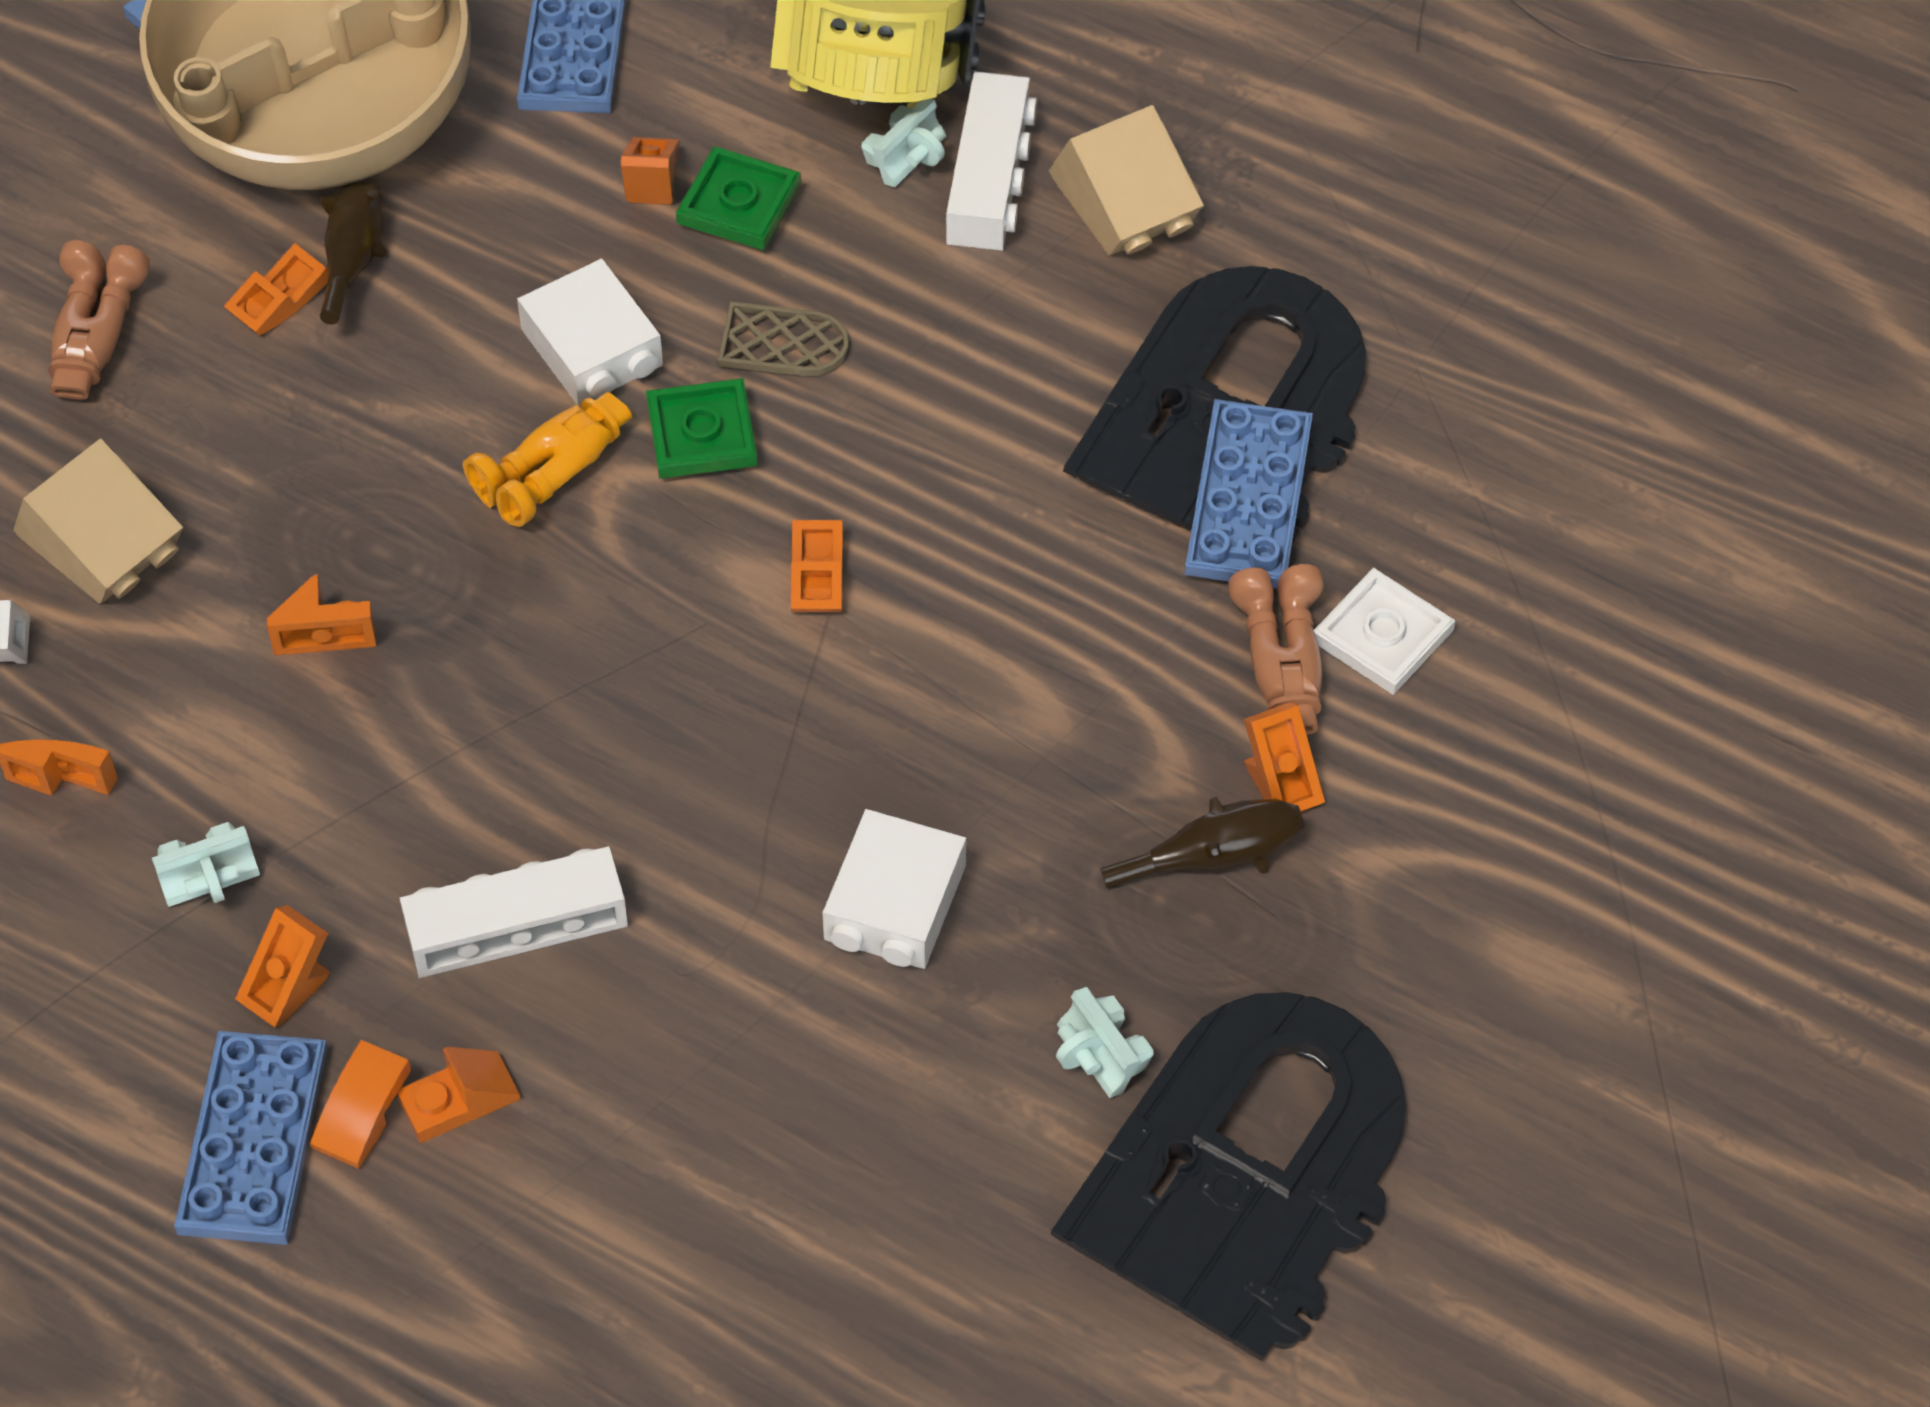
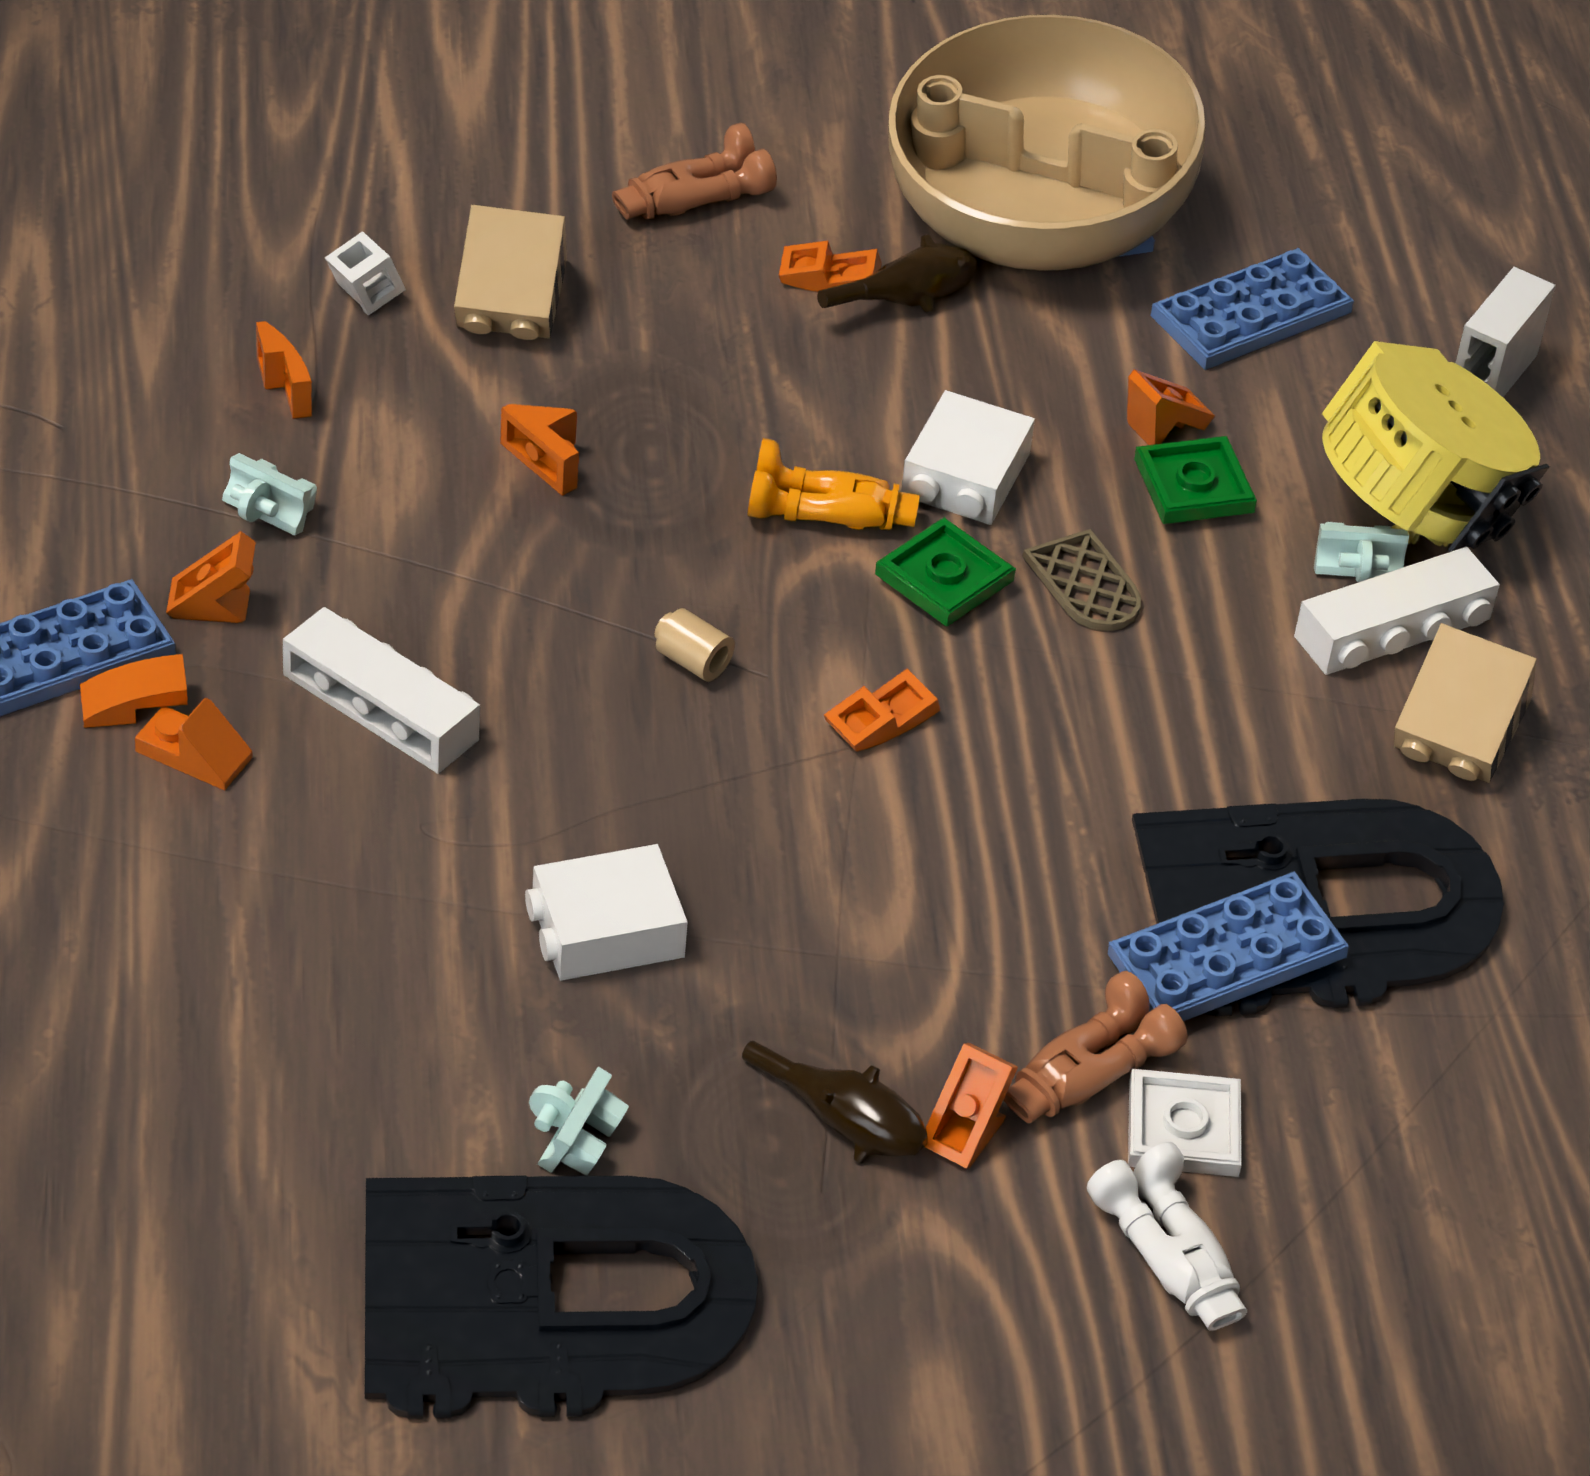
camera: 50 degrees right, 10 degrees down
(643, 652) = (694, 644): none -> tan brick
(1496, 708) = (1191, 1258): none -> white piece

